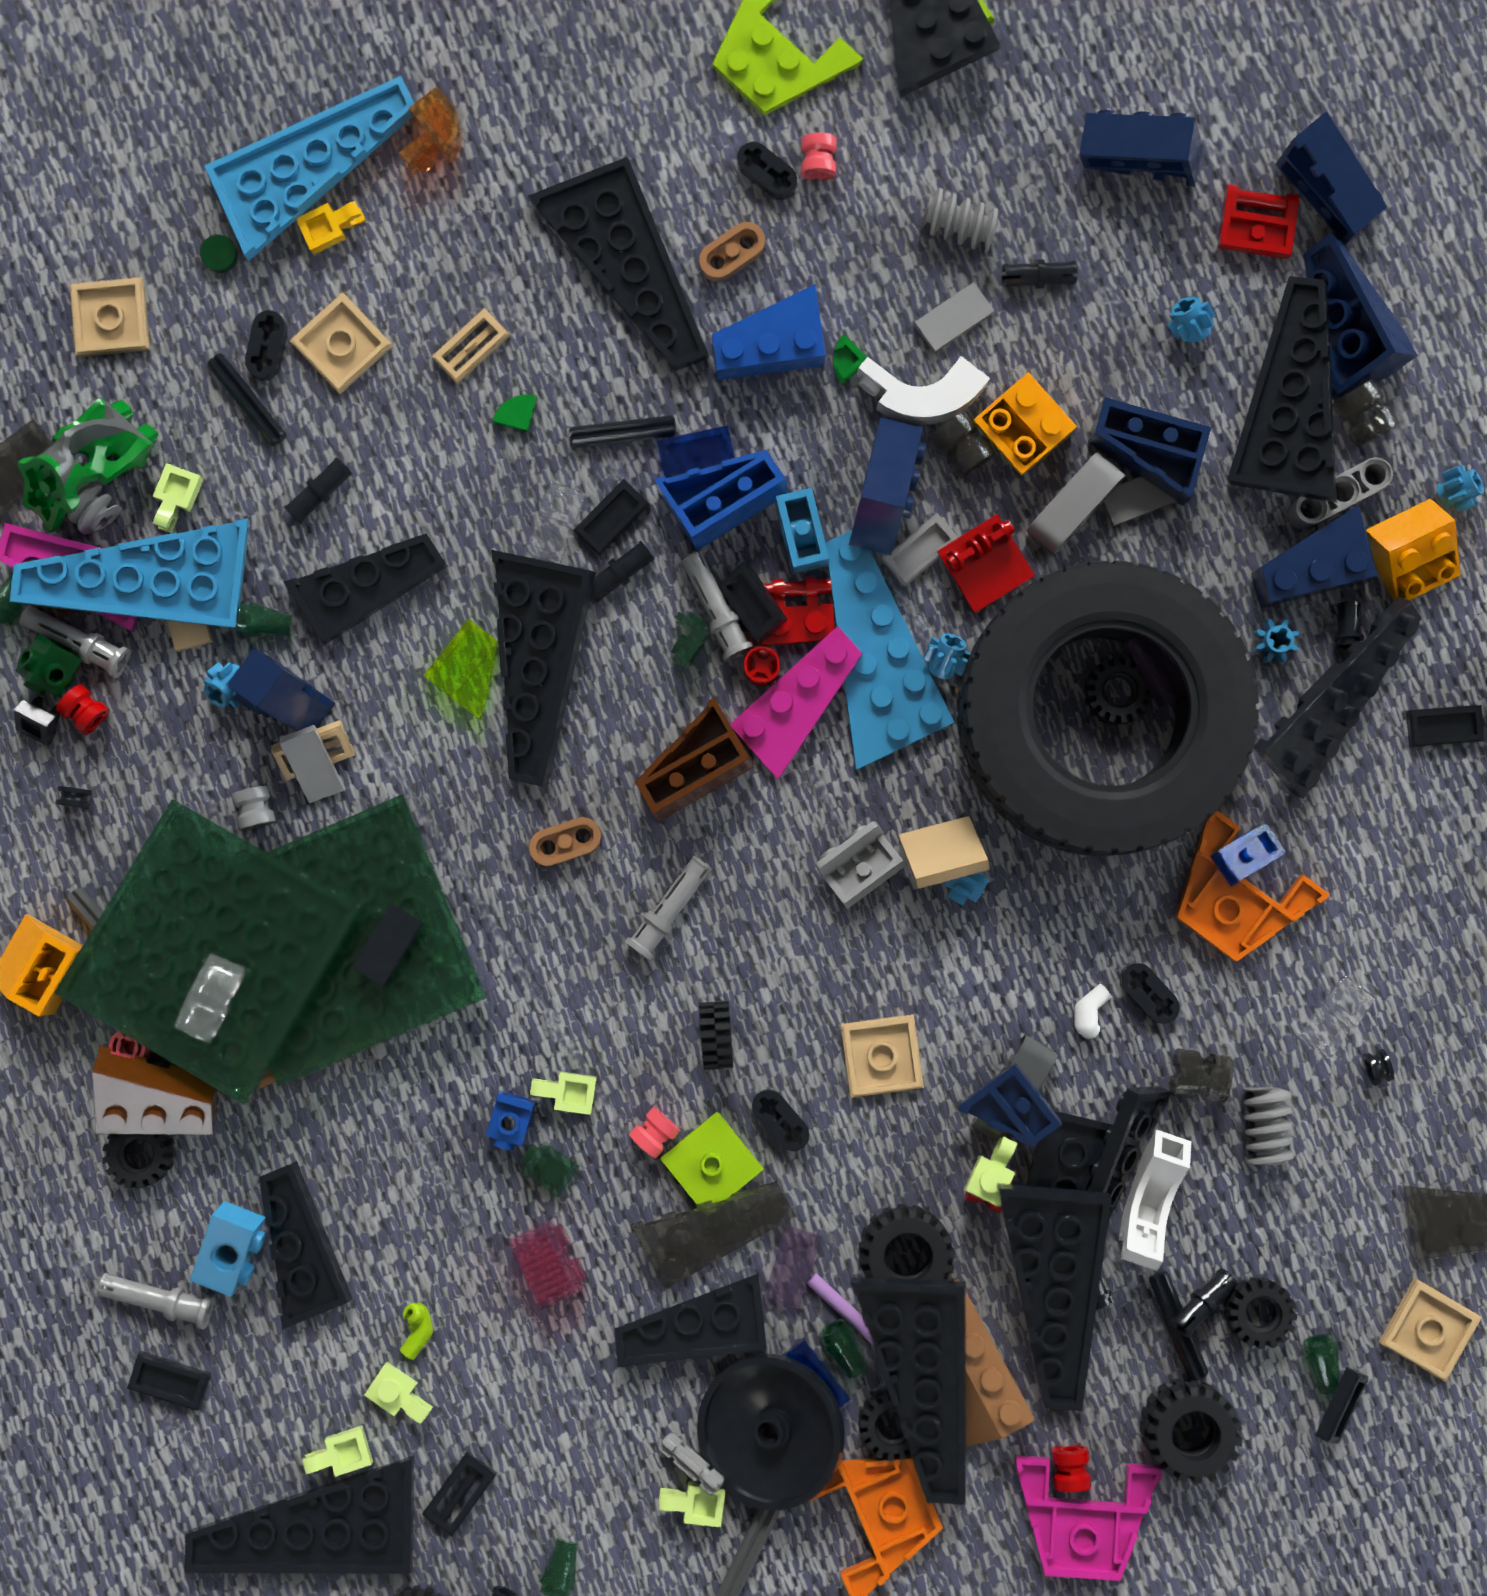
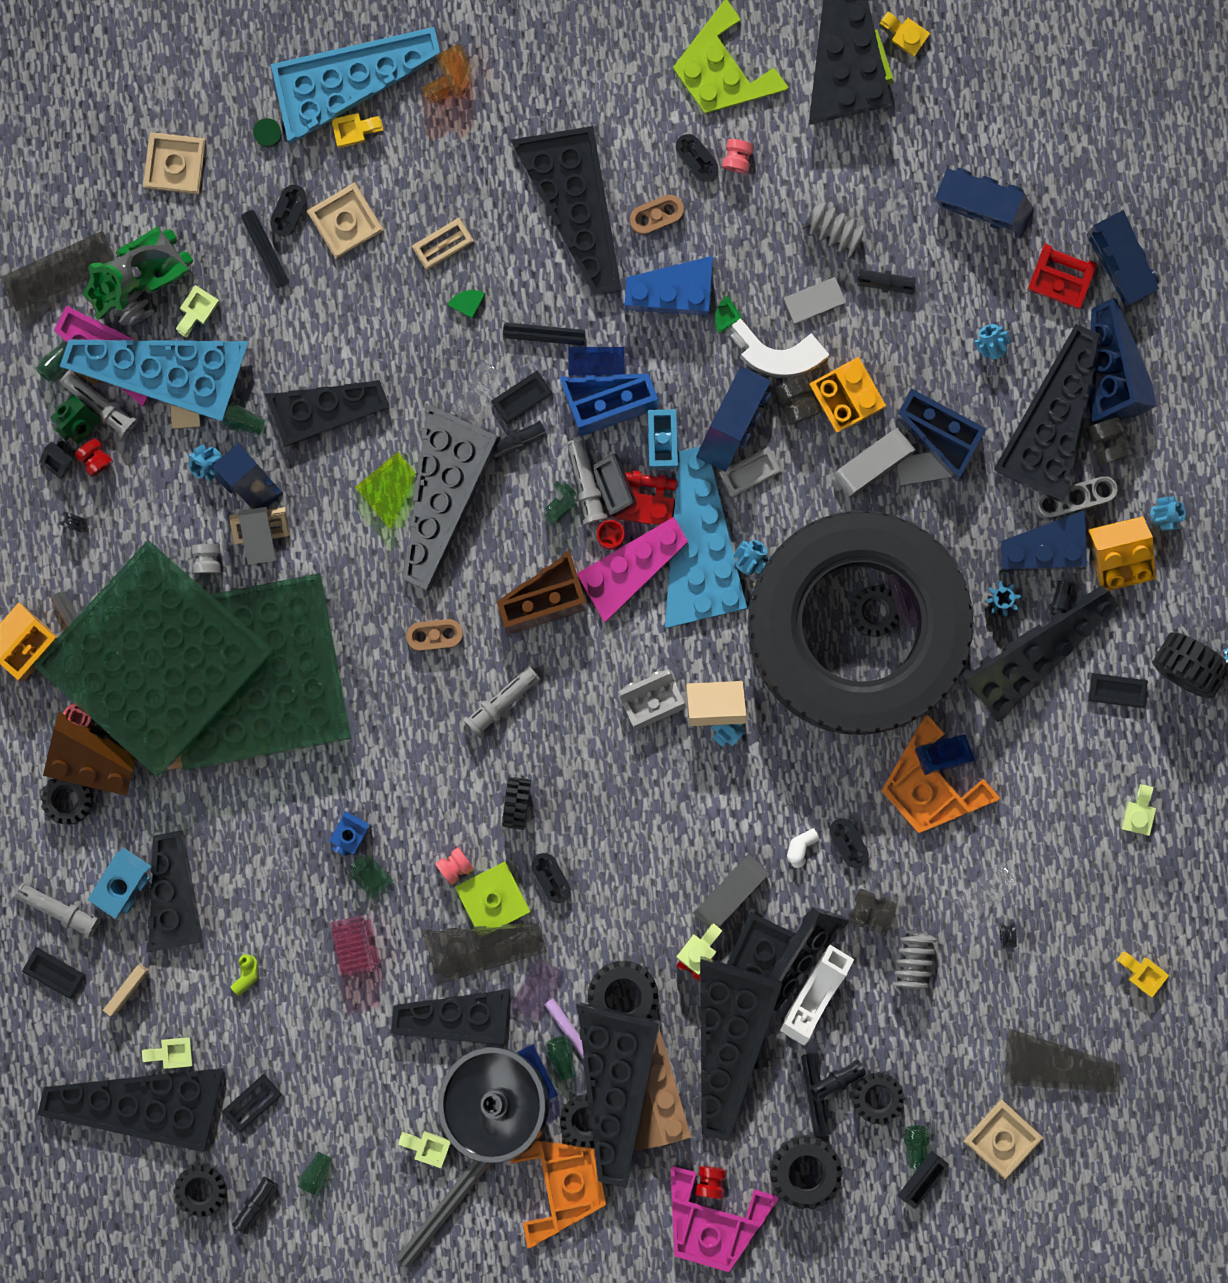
camera: 10 degrees right, 0 degrees up
(209, 998) = (148, 693): clear slope -> none
(265, 1385) = (126, 990): none -> tan tile
(318, 490) = (304, 329): black pin -> none
(388, 945) = (287, 683): black tile -> none
(394, 1391) = (219, 1017): yellowish green plate -> none
(572, 1092) = (398, 823): yellowish green plate -> none
(691, 1463) = (429, 1117): light grey axle -> none
(882, 1056) = (637, 846): tan tile -> none
(986, 562) = (797, 492): red hinge -> none
(1013, 1106) = (725, 902): dark blue wing -> none

